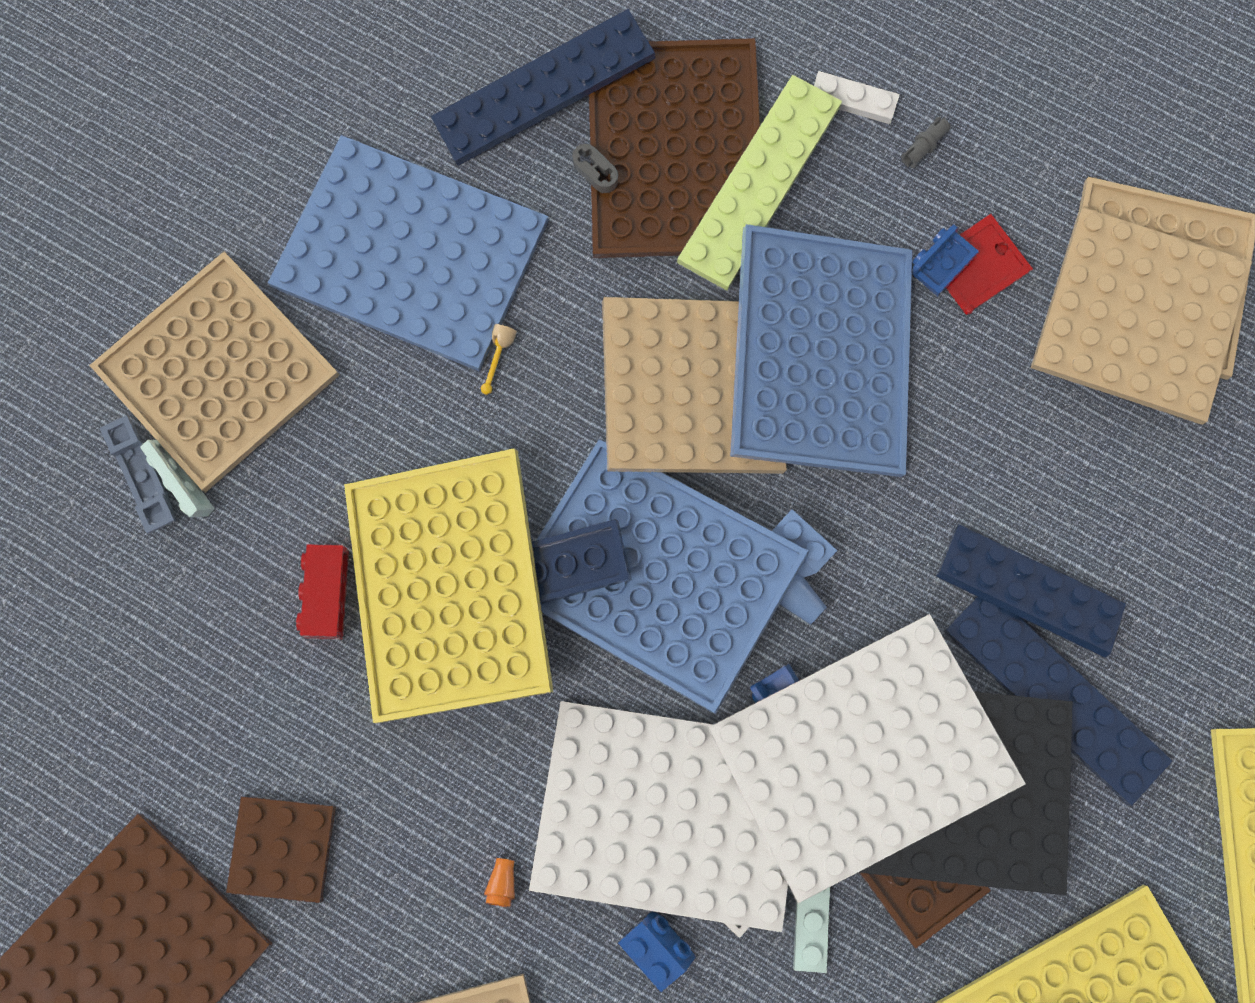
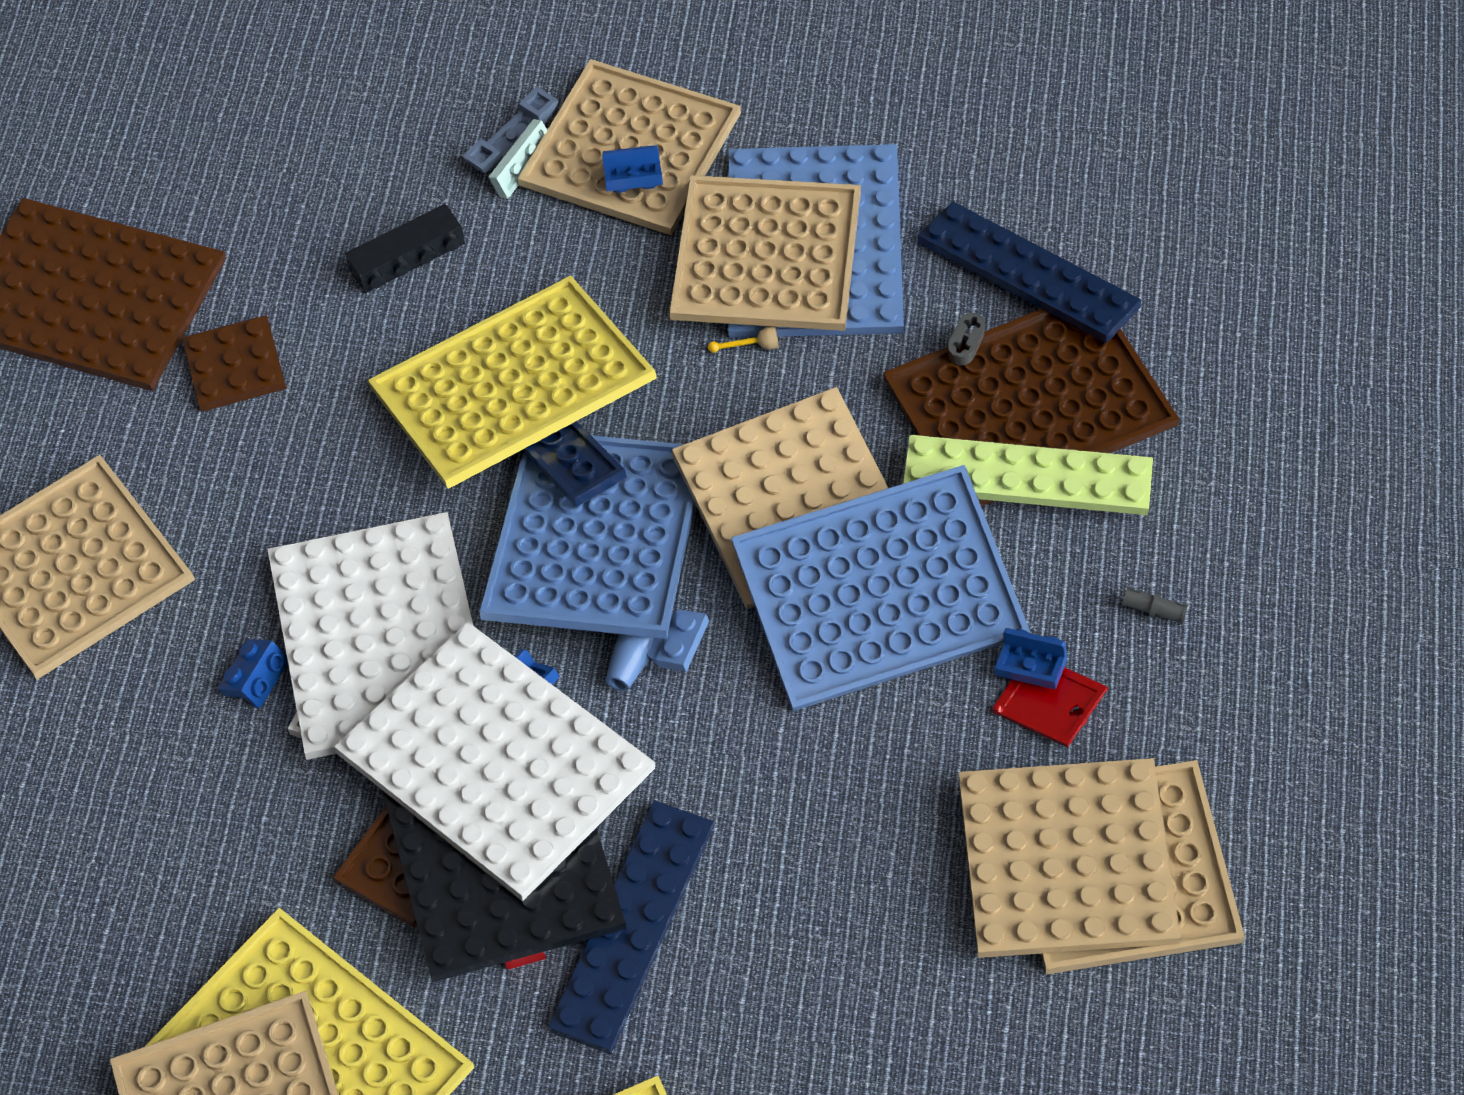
camera: 70 degrees right, 20 degrees down
(230, 630) = (405, 248): none -> black brick
(256, 378) = (632, 168): none -> blue bracket
(323, 592) = (467, 300): red brick -> none
(414, 297) = (766, 253): none -> tan plate
(500, 887) = (263, 530): orange cone -> none
(812, 933) = (323, 791): light aqua plate -> none
(858, 97) = (1170, 530): white plate -> none
(1032, 591) = (726, 860): dark blue plate -> none

